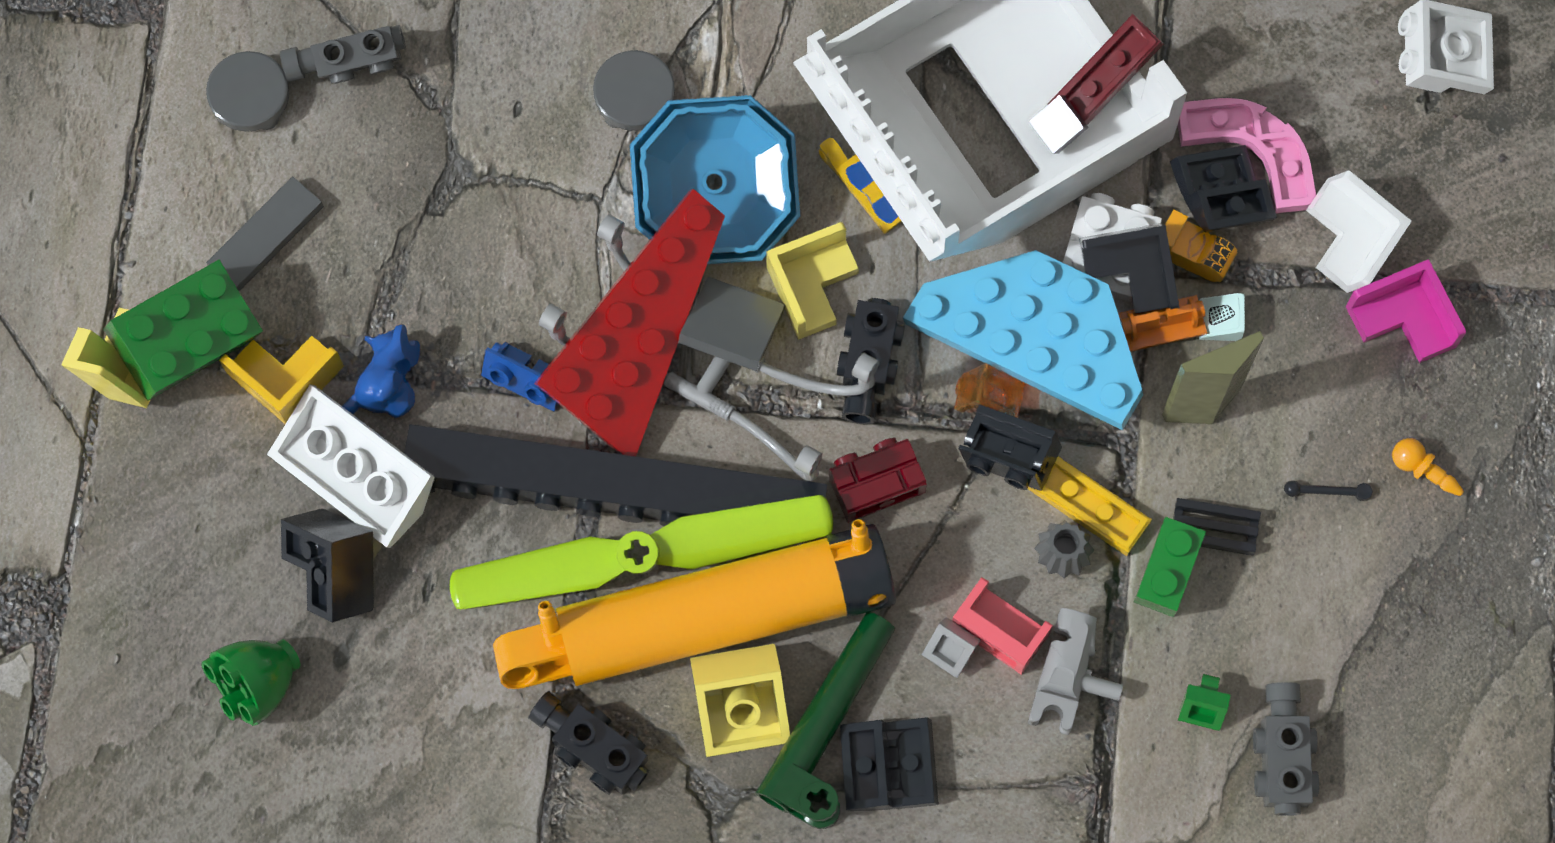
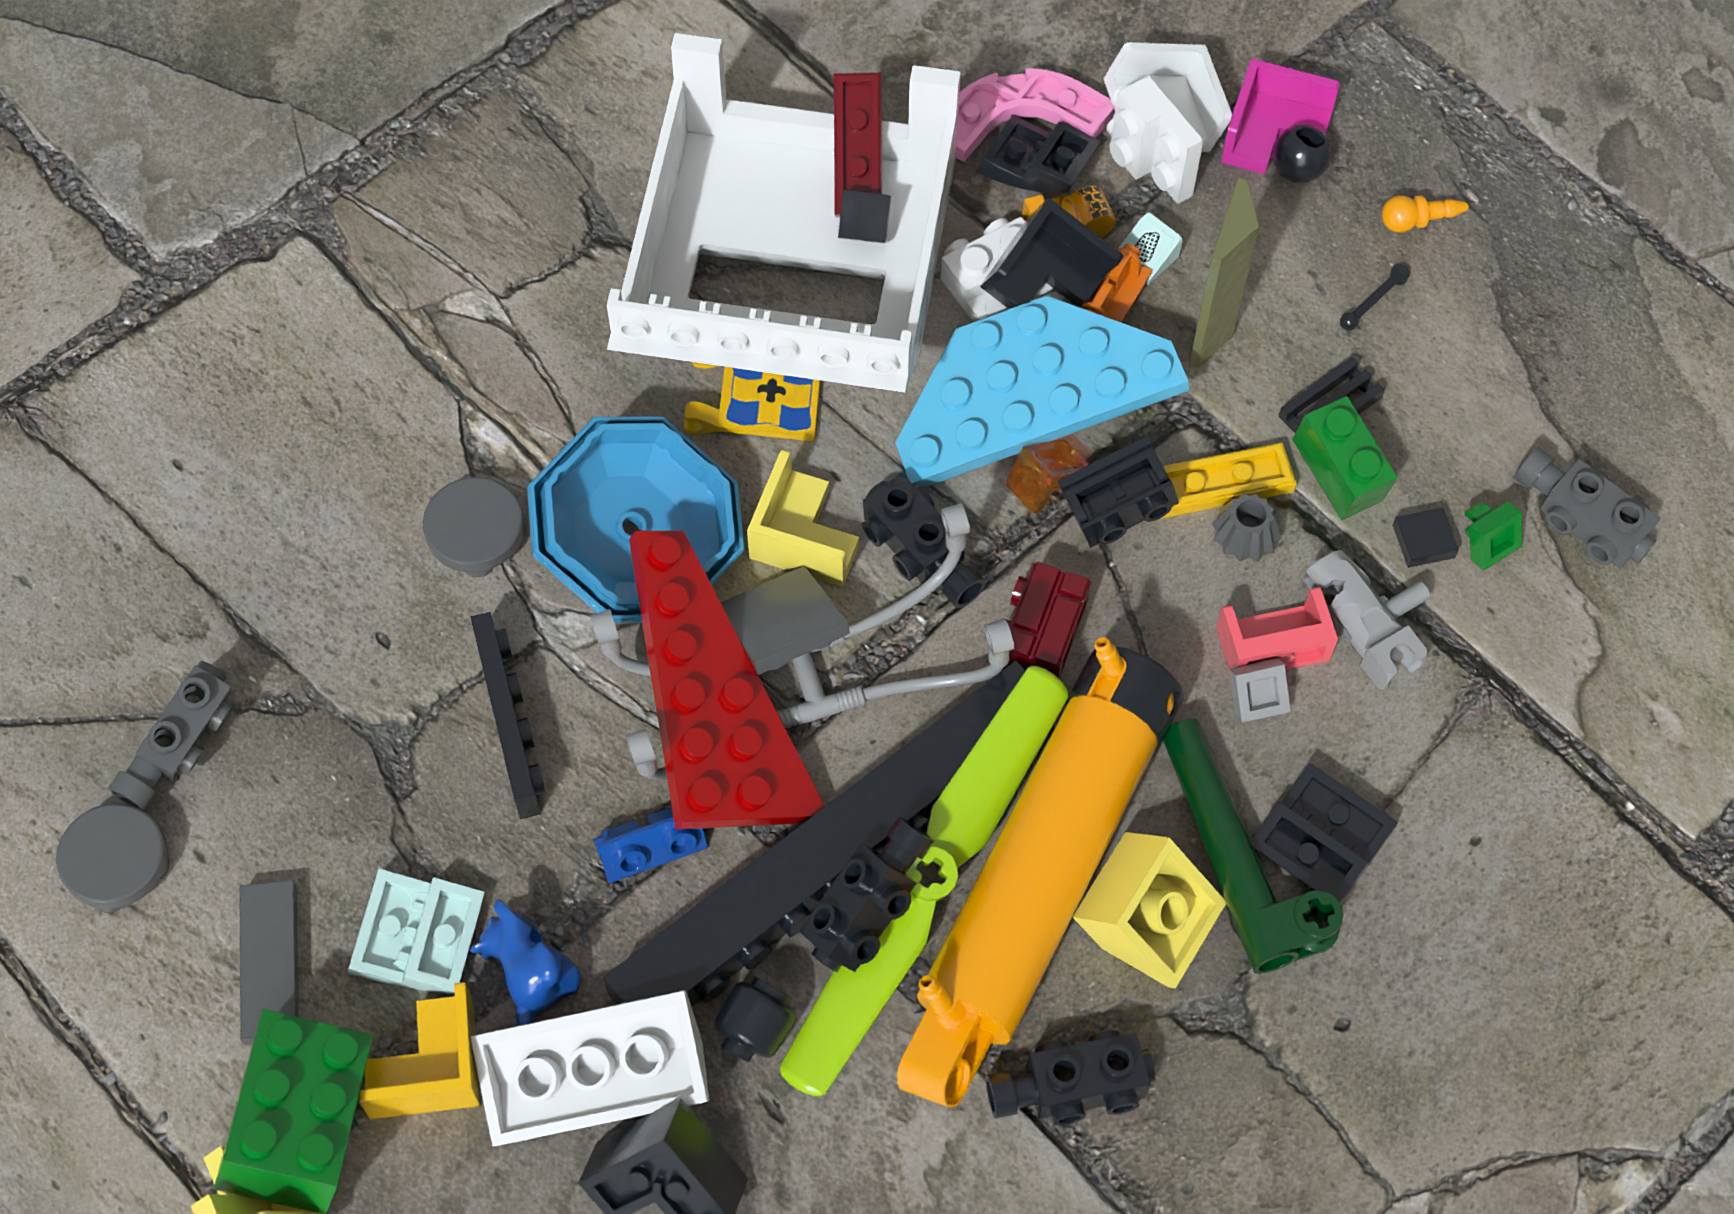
camera: 50 degrees left, 10 degrees down
(353, 297) = (415, 932): none -> light aqua slope
(465, 531) = (755, 1019): none -> black head
(519, 235) = (513, 732): none -> black plate
(587, 528) = (866, 899): none -> black brick
(1166, 664) = (1425, 537): none -> black tile
(1300, 247) = (1154, 138): none -> white plate
(1391, 353) = (1301, 153): none -> black piece

